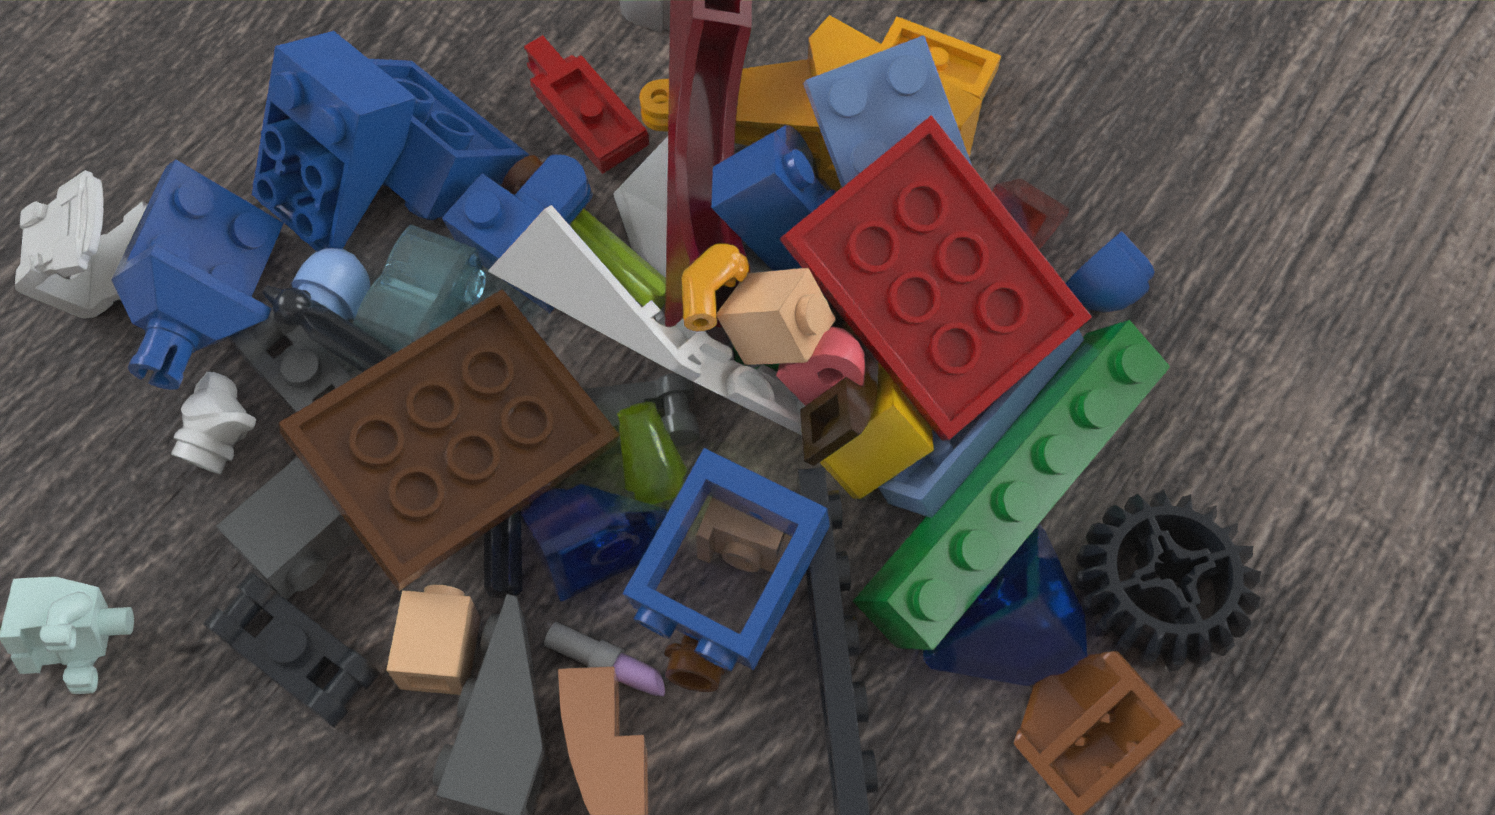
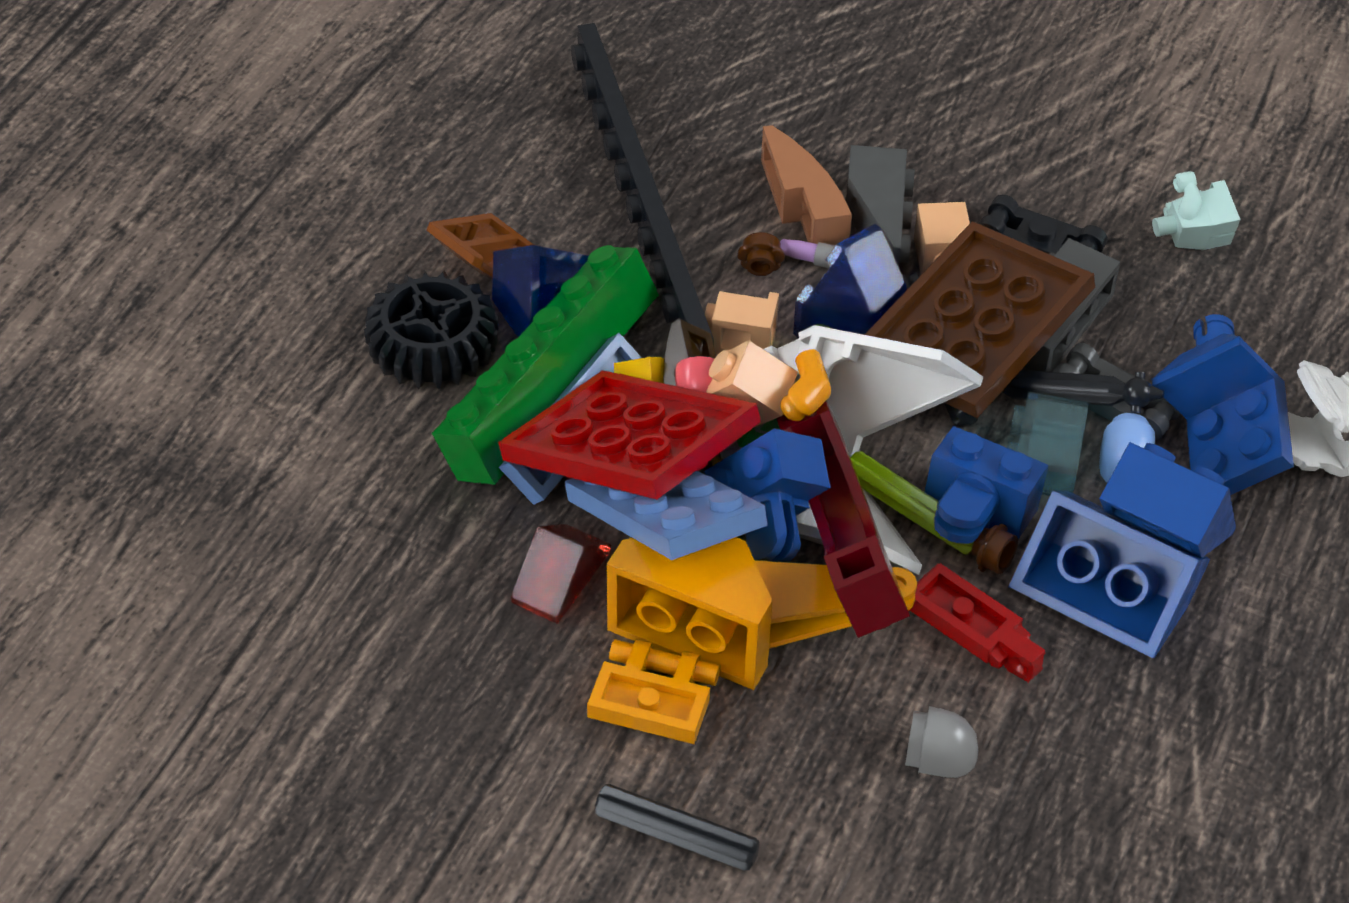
camera: 170 degrees right, 15 degrees down
(211, 424) = (1160, 335): white animal -> none
(758, 498) = (763, 295): blue window -> none
(1112, 277) = (477, 531): blue piece -> none

